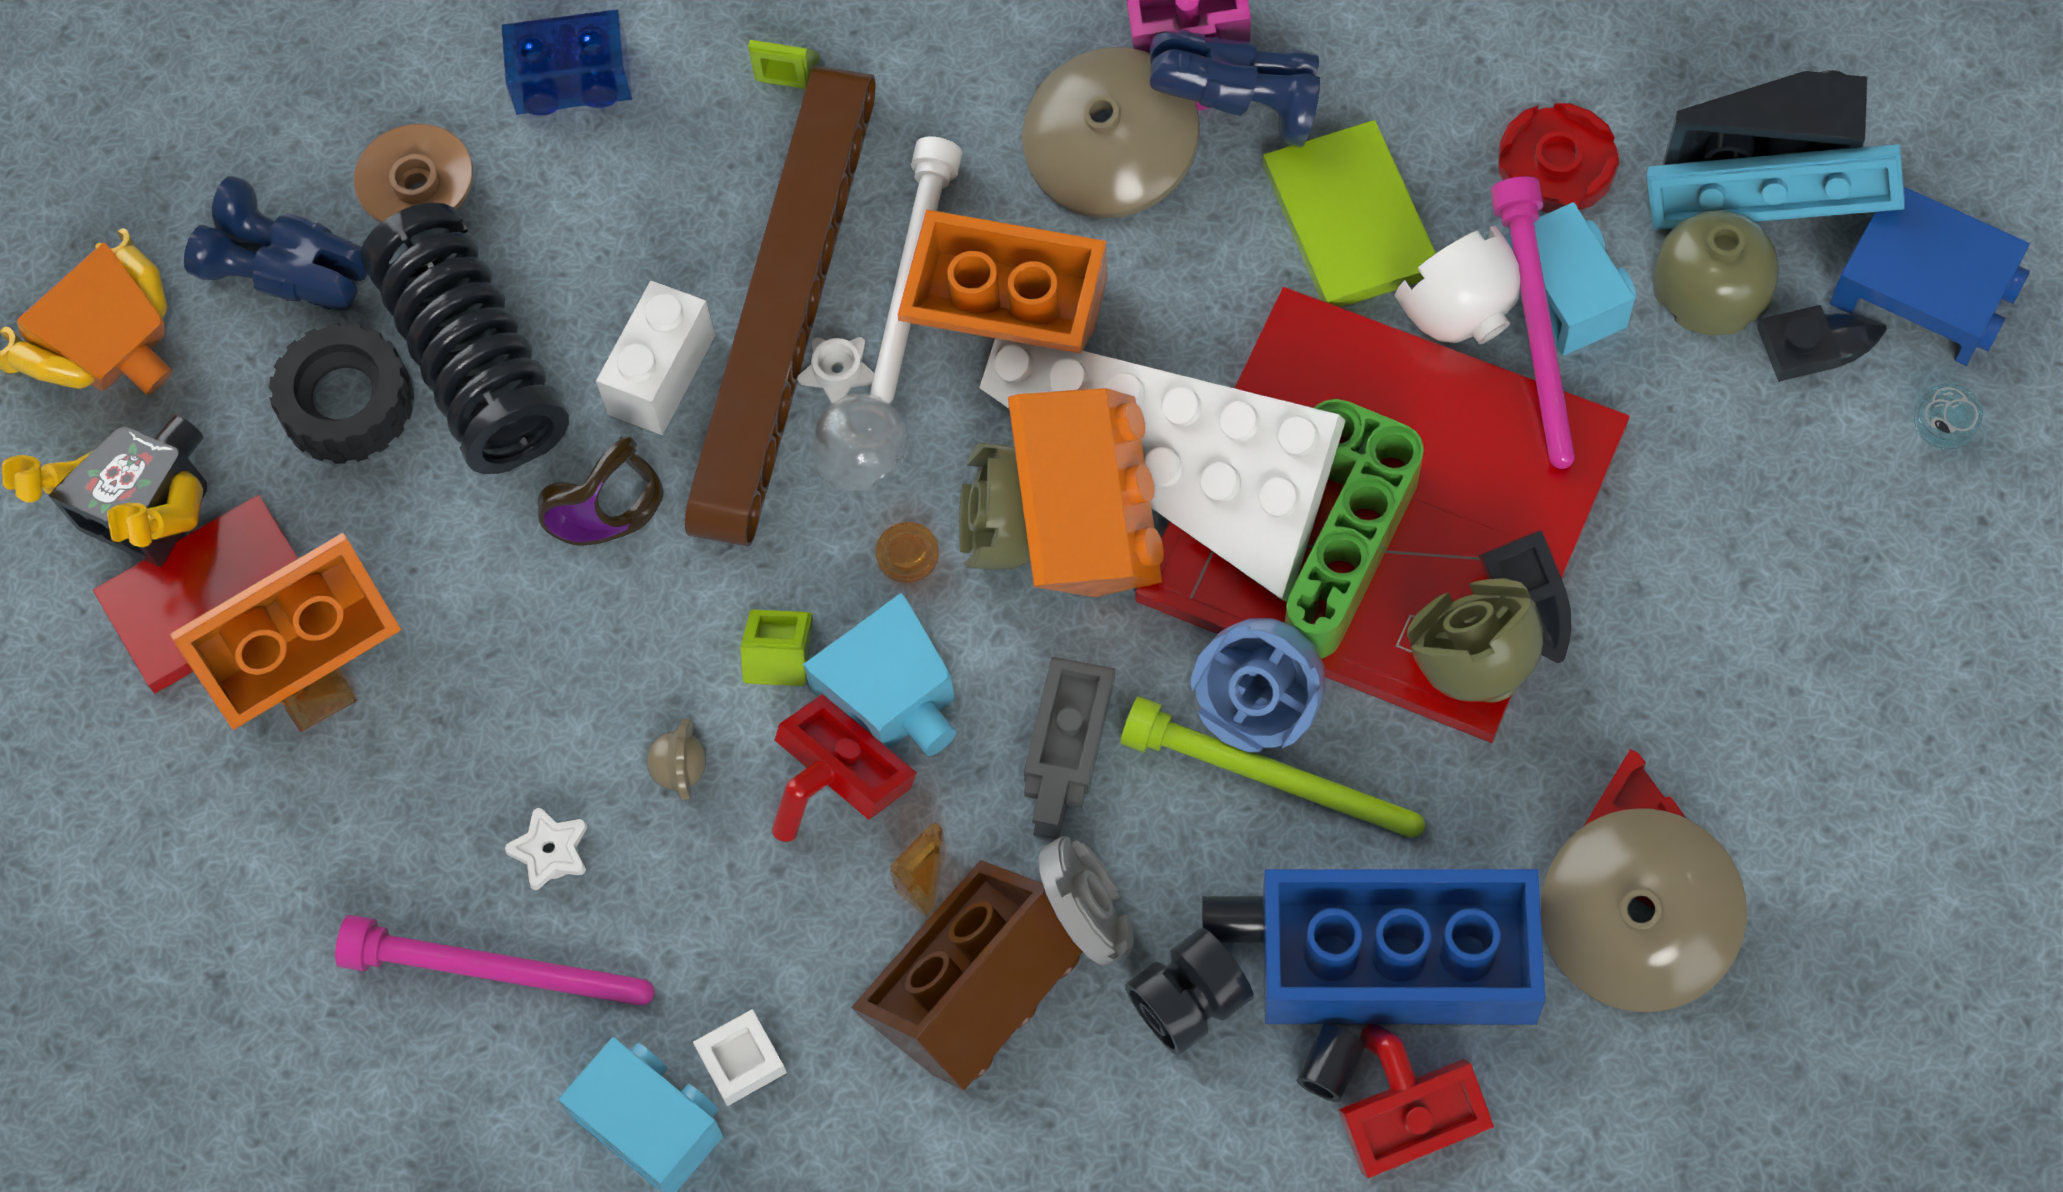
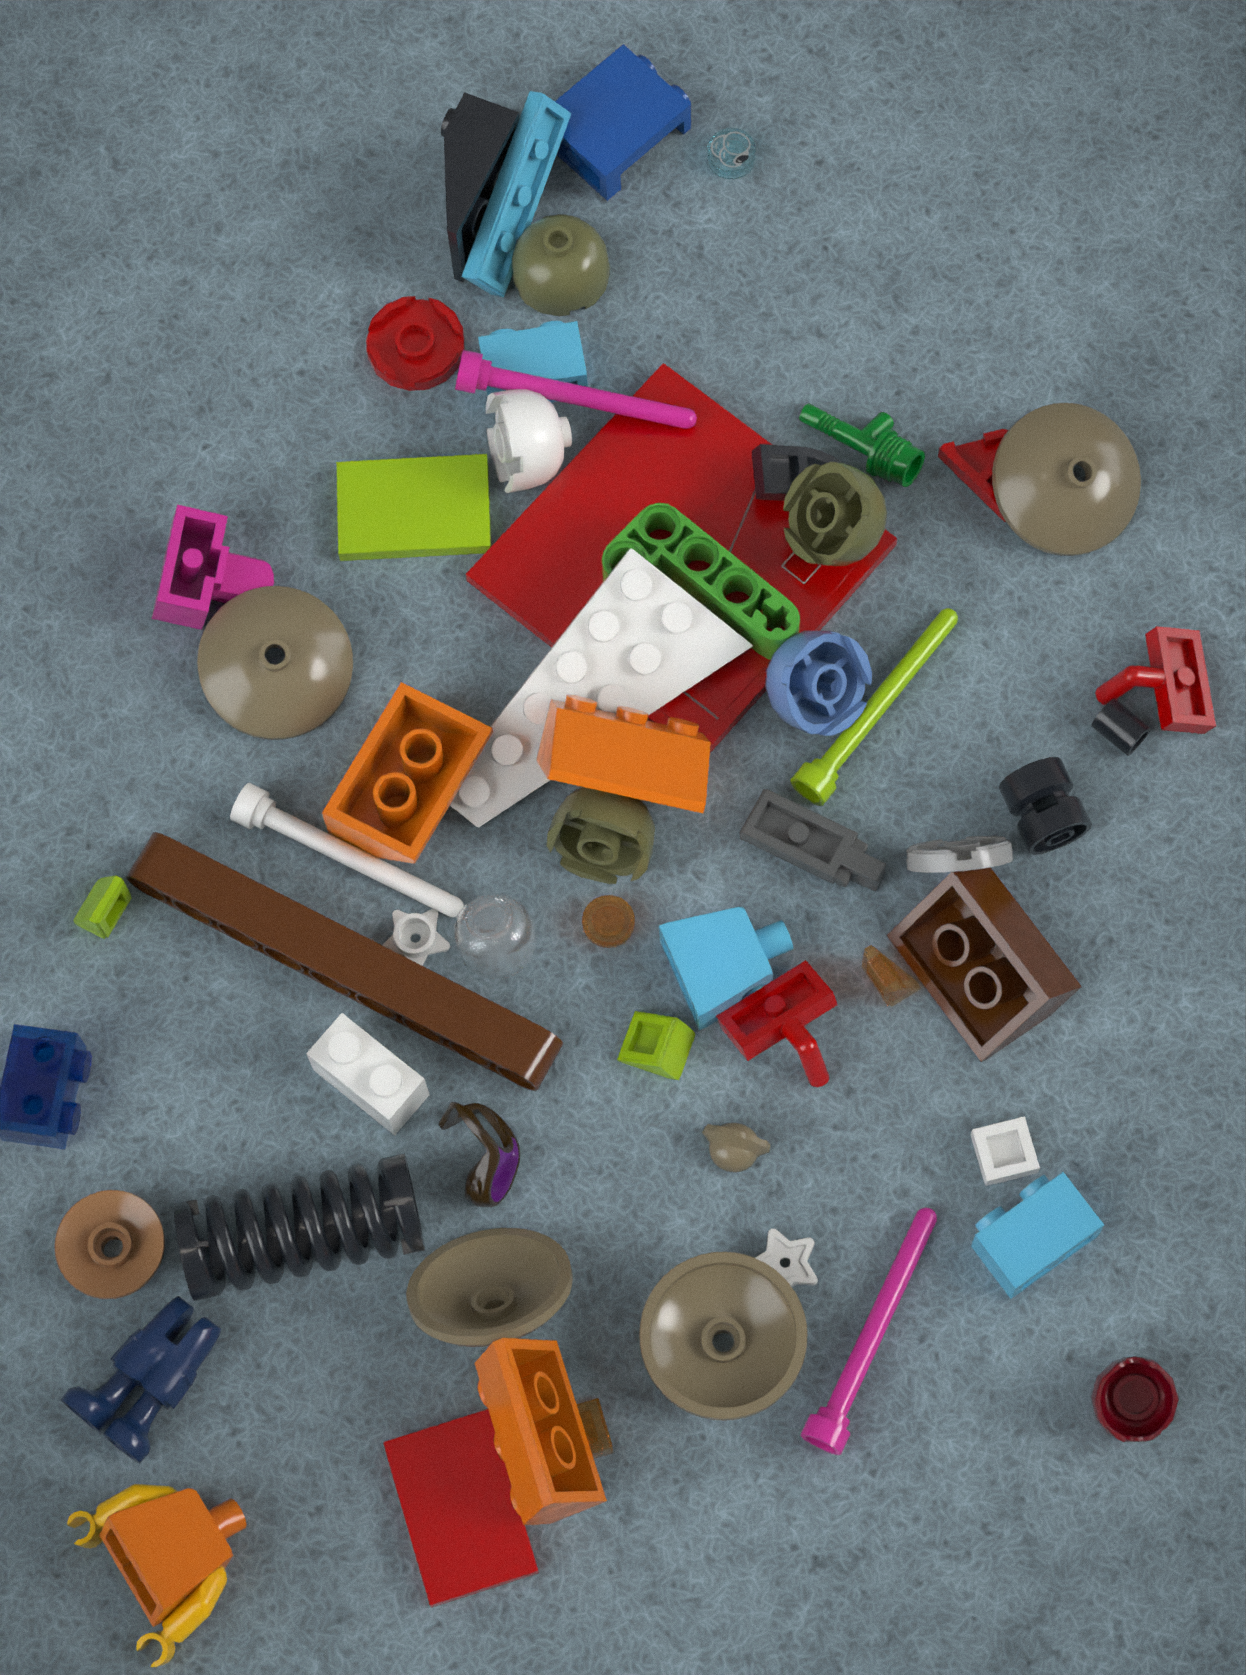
camera: 75 degrees left, 5 degrees up
(125, 491) = (350, 1550): torso -> none
(335, 349) = (283, 1315): black tyre -> none
(412, 765) = (730, 1297): none -> dark tan dish
(434, 536) = (489, 1286): none -> dark tan dish
(1234, 73) = (278, 543): dark blue piece -> none
(1234, 918) = (990, 762): black hinge -> none
(1402, 946) = (1053, 647): blue brick -> none
(1604, 688) = (887, 453): none -> green piece
(1816, 342) = (637, 219): black plate -> none

